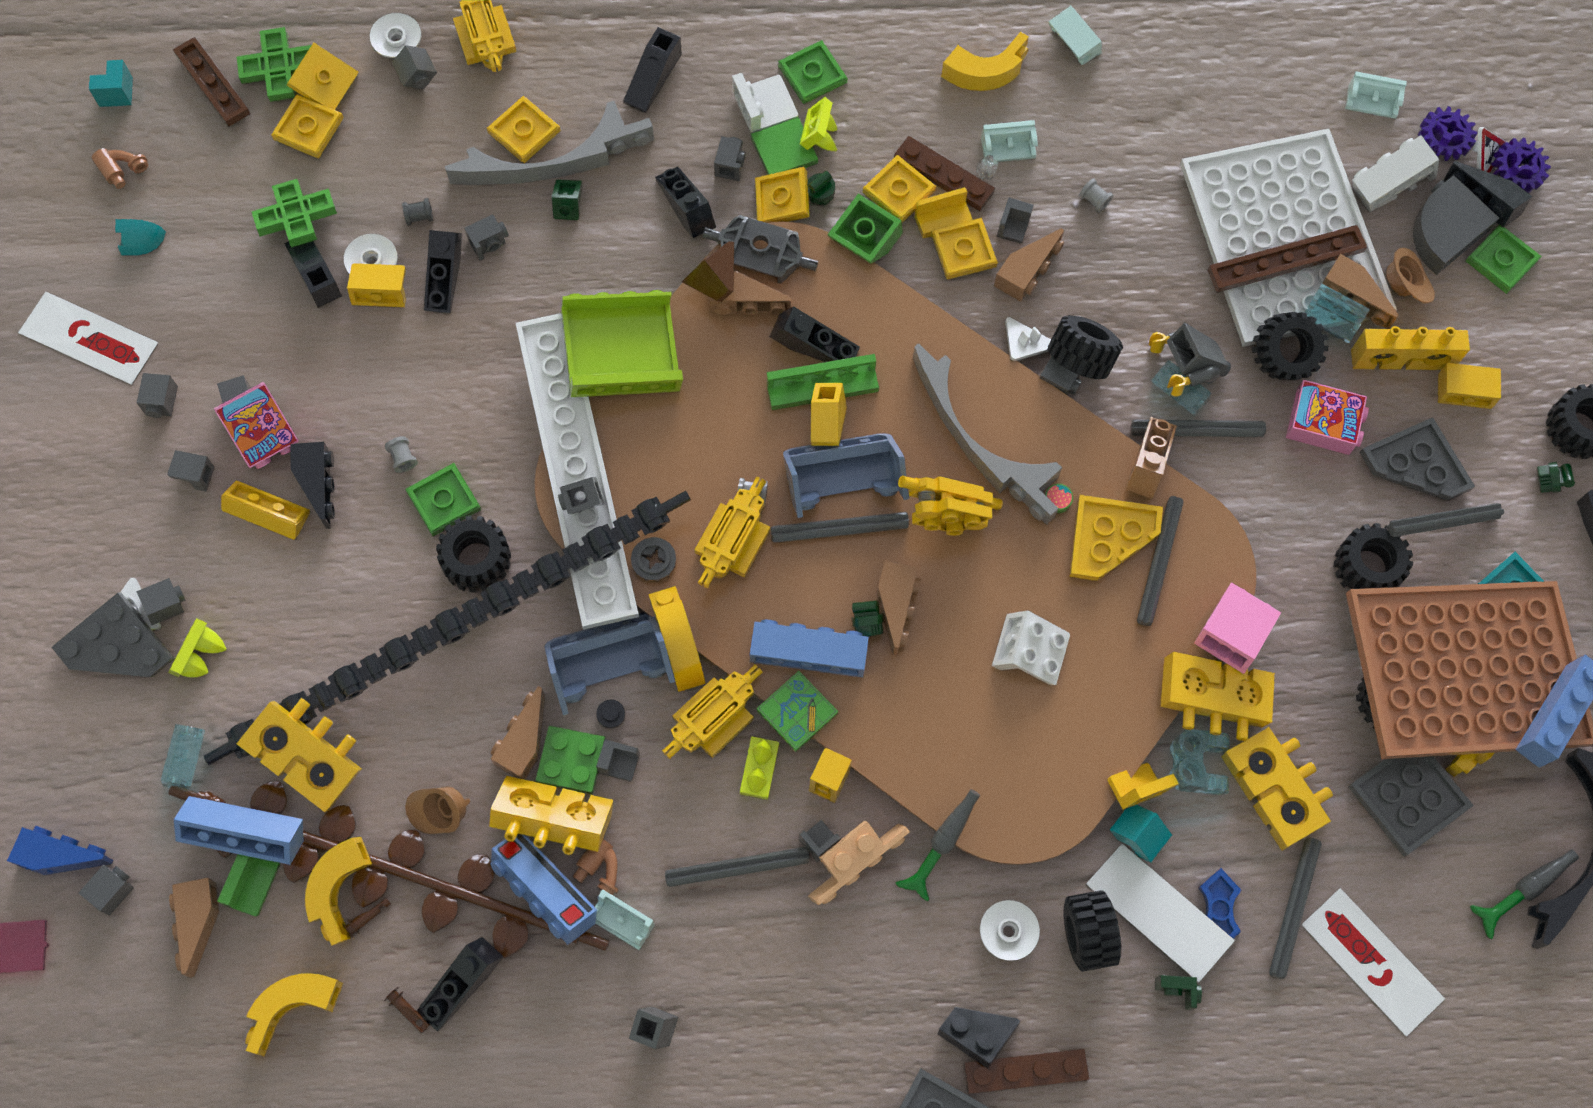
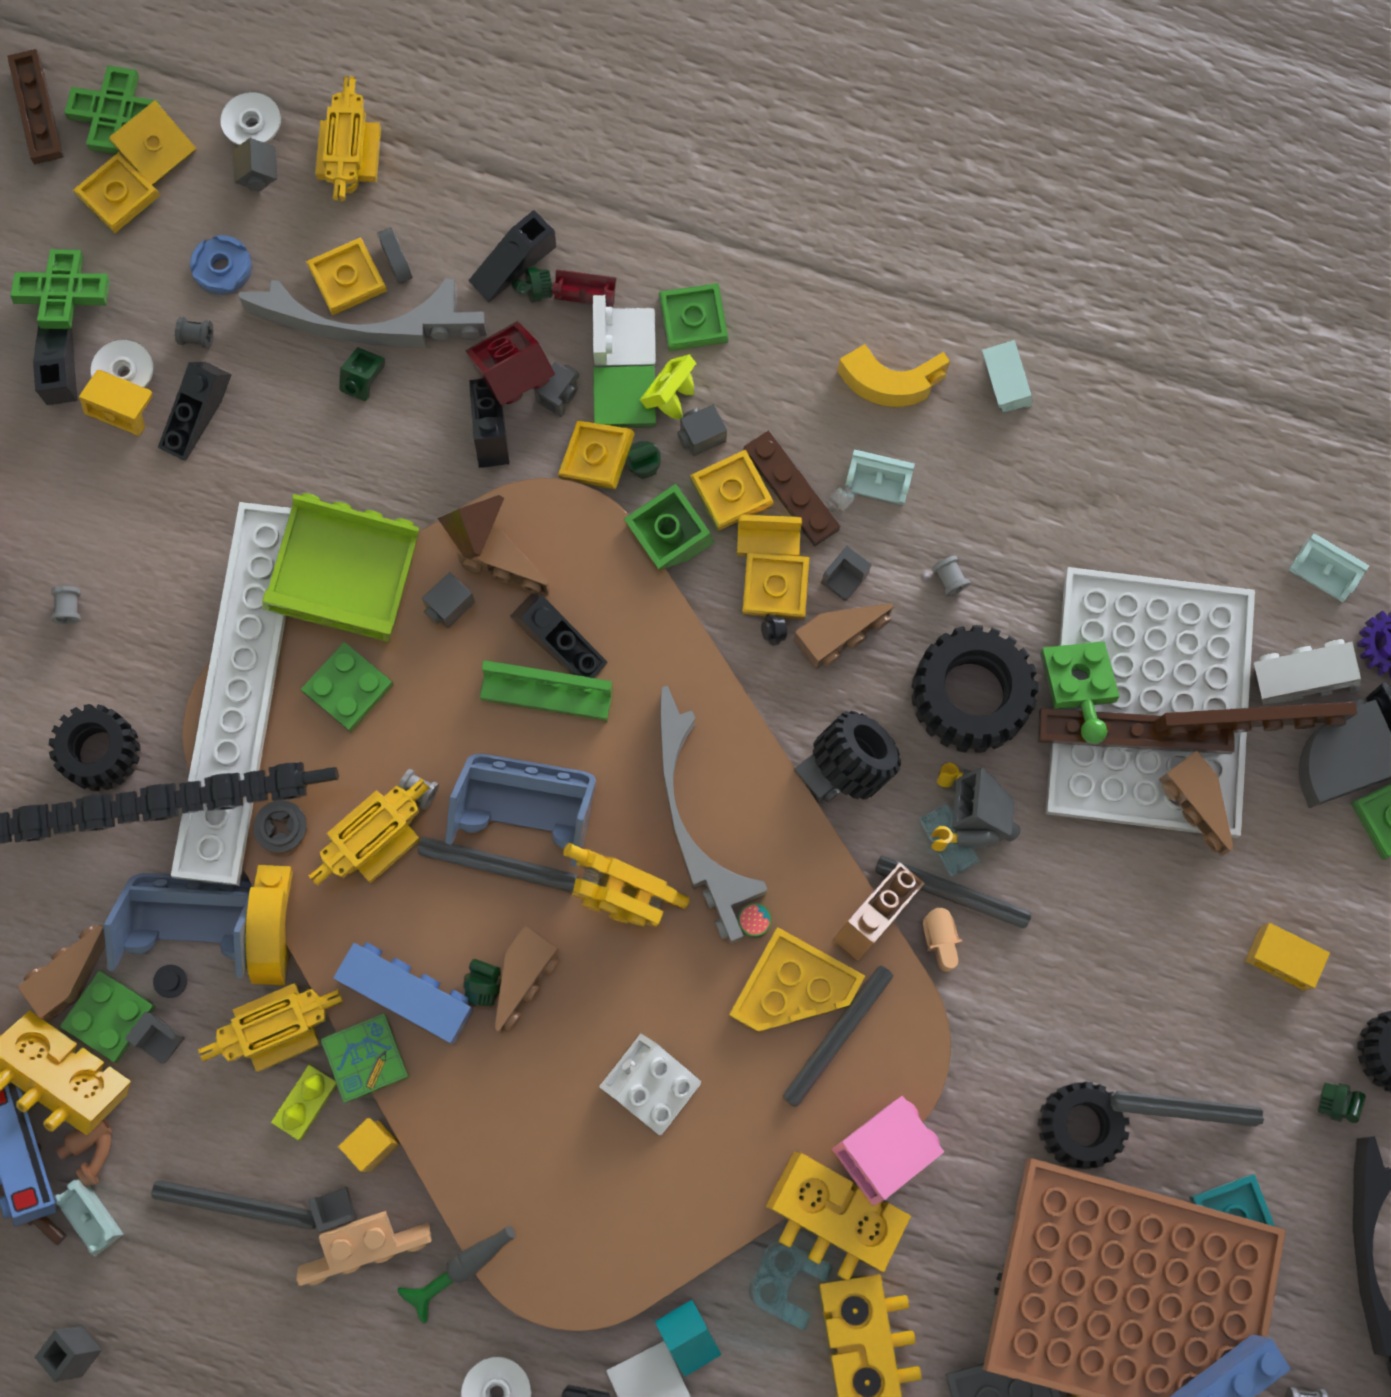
camera: 20 degrees right, 5 degrees up
(416, 167) = (224, 280): none -> medium blue tile
(443, 499) = (92, 671): bright green tile -> none
(486, 235) = (255, 387): dark grey brick -> none
(556, 101) = (394, 255): none -> dark grey beam
(568, 497) = (237, 730): dark grey brick -> none
(661, 435) = (347, 687): none -> bright green plate
(678, 86) = (537, 284): none -> dark green piece
(688, 148) = (511, 363): none -> dark red slope
(715, 341) = (447, 601): none -> dark grey brick
(716, 76) = (582, 286): none -> dark red hinge
(777, 259) = (557, 528): dark grey plate -> none
(827, 414) = (533, 731): yellow slope -> none
(857, 151) = (702, 430): none -> dark grey brick
(977, 280) = (774, 629): none -> black plate
(1024, 341) = (797, 718): white piece -> none
(1140, 787) = (707, 1289): yellow panel -> none
(1162, 242) = (998, 657): none -> black tyre
(1206, 464) = (942, 938): none -> light nougat arm
(1226, 245) = (1070, 692): none -> bright green plate
(1310, 341) = (1109, 858): black tyre -> none
(1327, 417) = (1105, 935): brick -> none
(1336, 313) = (1163, 817): clear light blue hinge -> none
(1367, 217) = (1243, 719): none -> reddish brown plate
(1408, 276) = (1272, 803): medium nougat piece -> none
(1413, 347) = (1240, 891): yellow piece -> none
(1420, 461) = (1191, 1024): dark grey plate -> none

